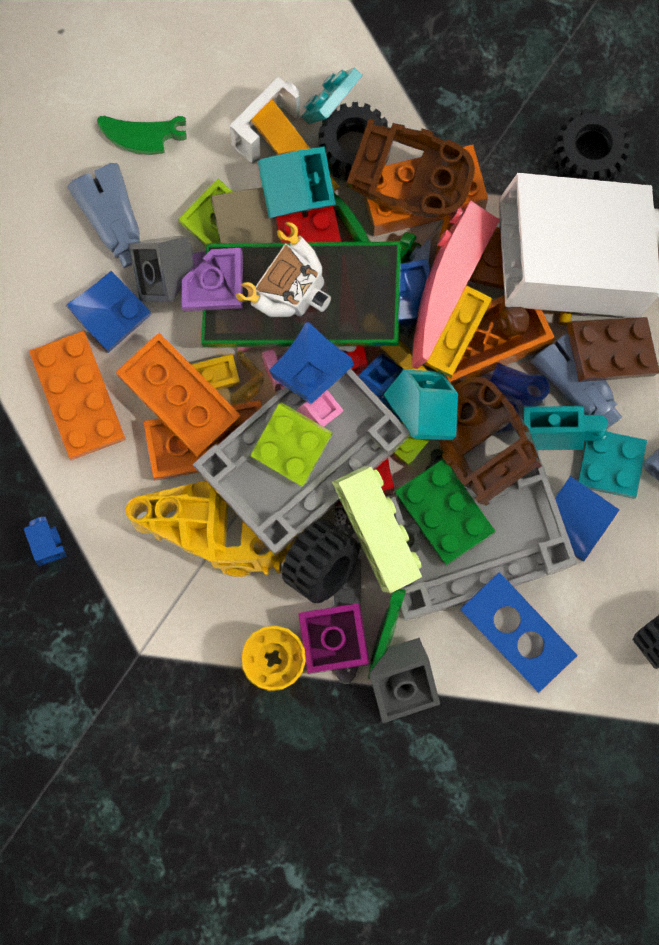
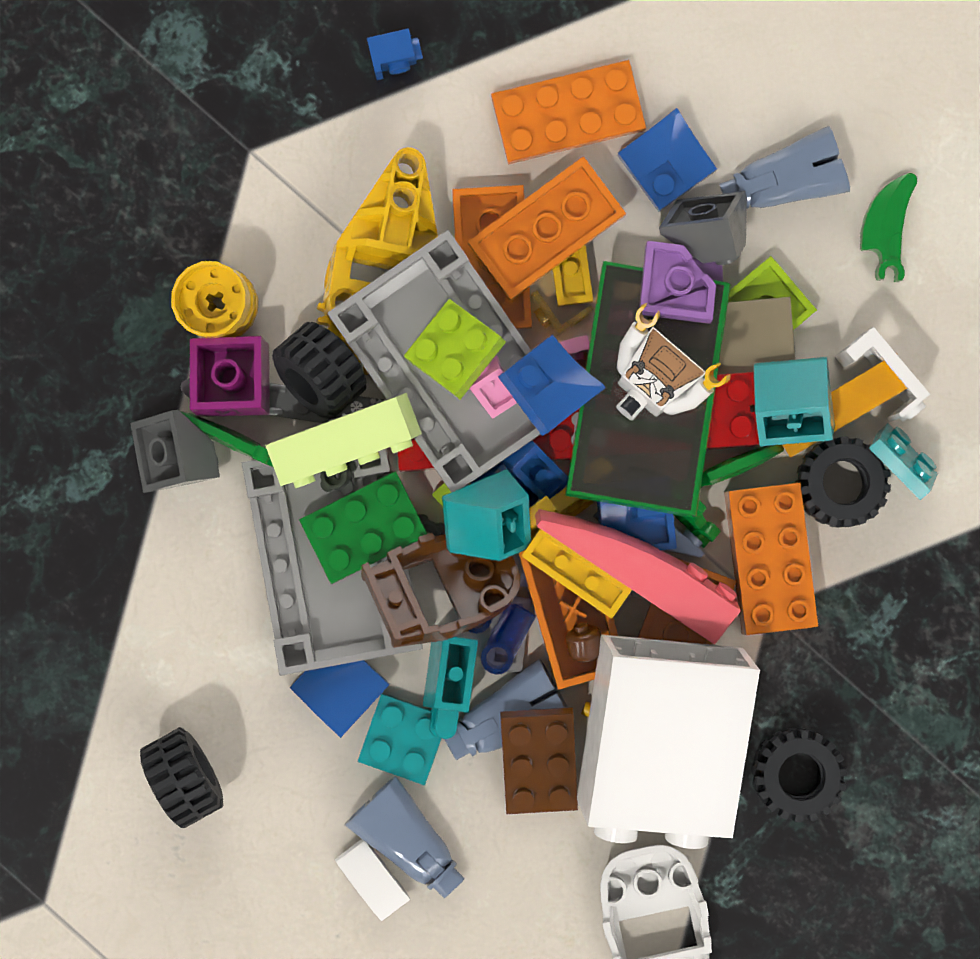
camera: 105 degrees right, 10 degrees up
(440, 180) = (773, 578): reddish brown slope -> none
(481, 612) = (258, 580): blue piece -> none

